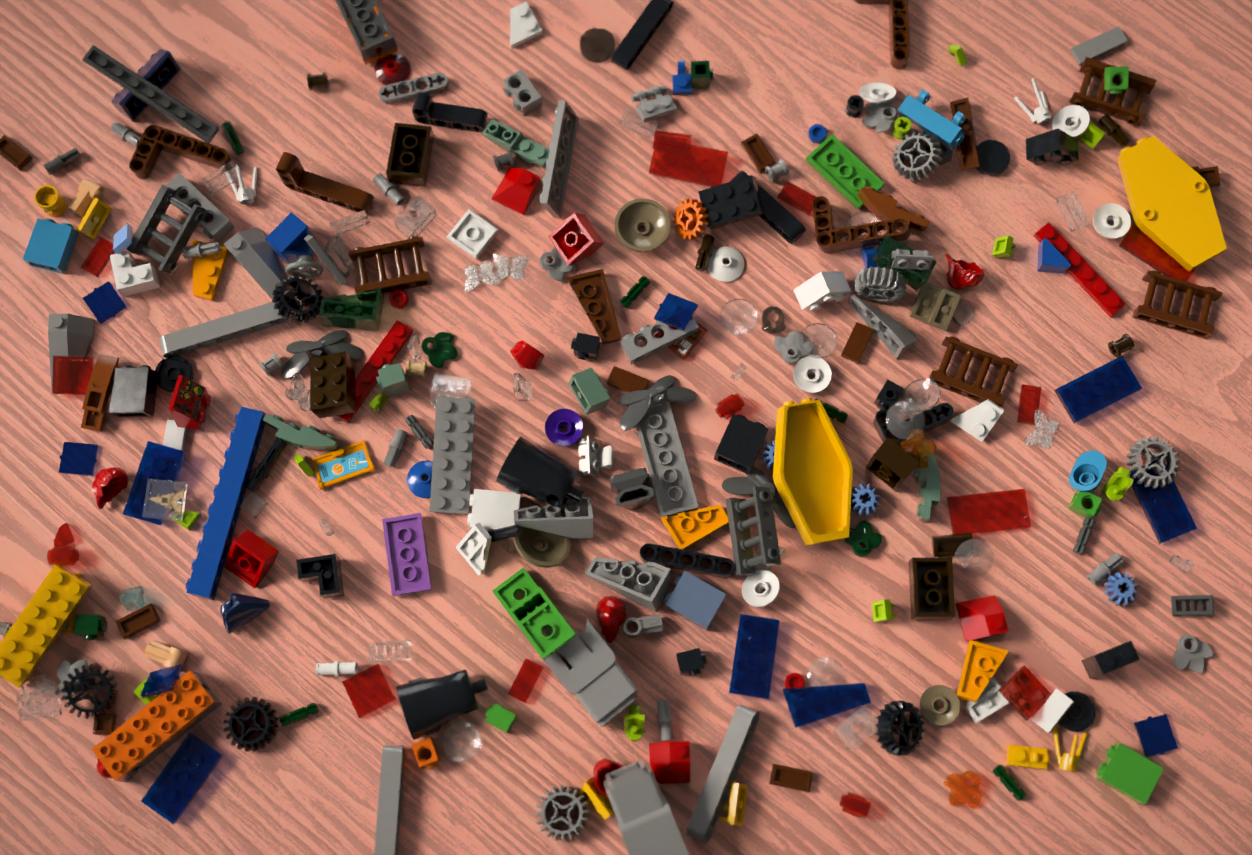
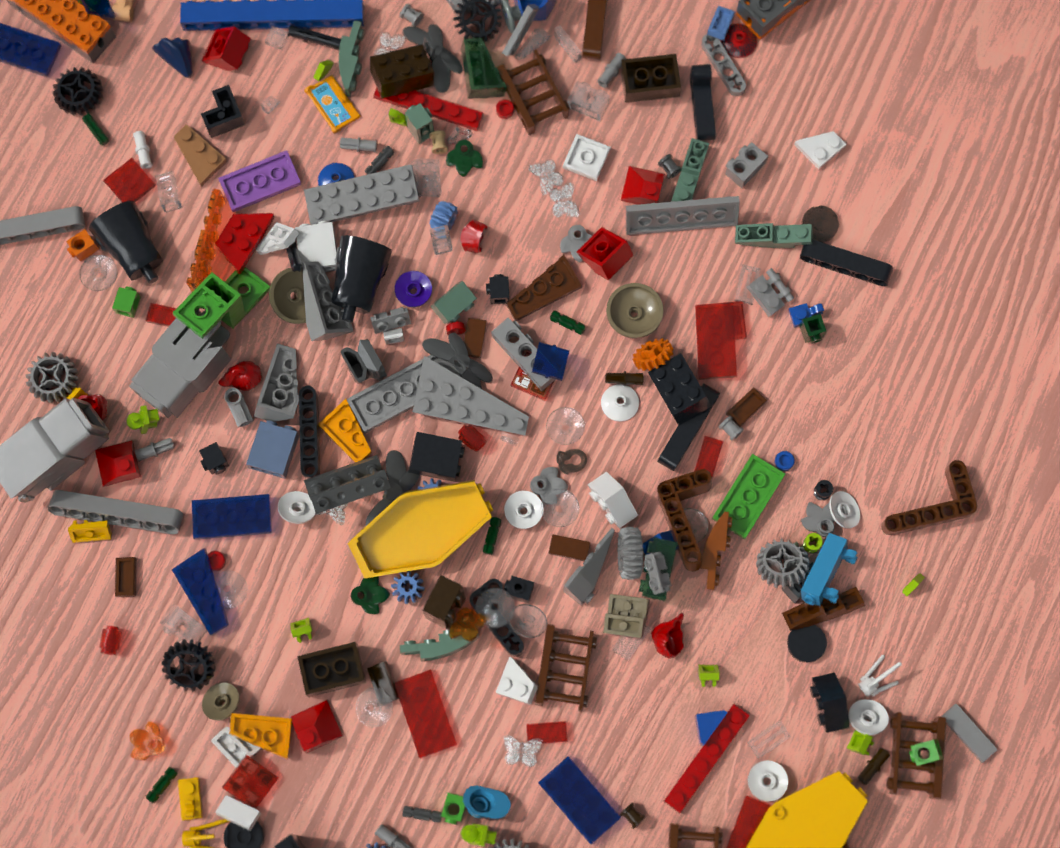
camera: 75 degrees right, 0 degrees up
(359, 610) = (199, 154): none -> medium nougat wing
(371, 78) = (720, 23): none -> medium blue plate
(463, 585) = (242, 237): none -> red wing
(468, 620) = (205, 247): none -> clear orange wing
(498, 380) = (443, 214): none -> medium blue gear
(599, 85) = (773, 236): none -> sand green slope
(614, 396) = (455, 327): none -> red tile
(688, 411) = (456, 399): none -> light grey wing

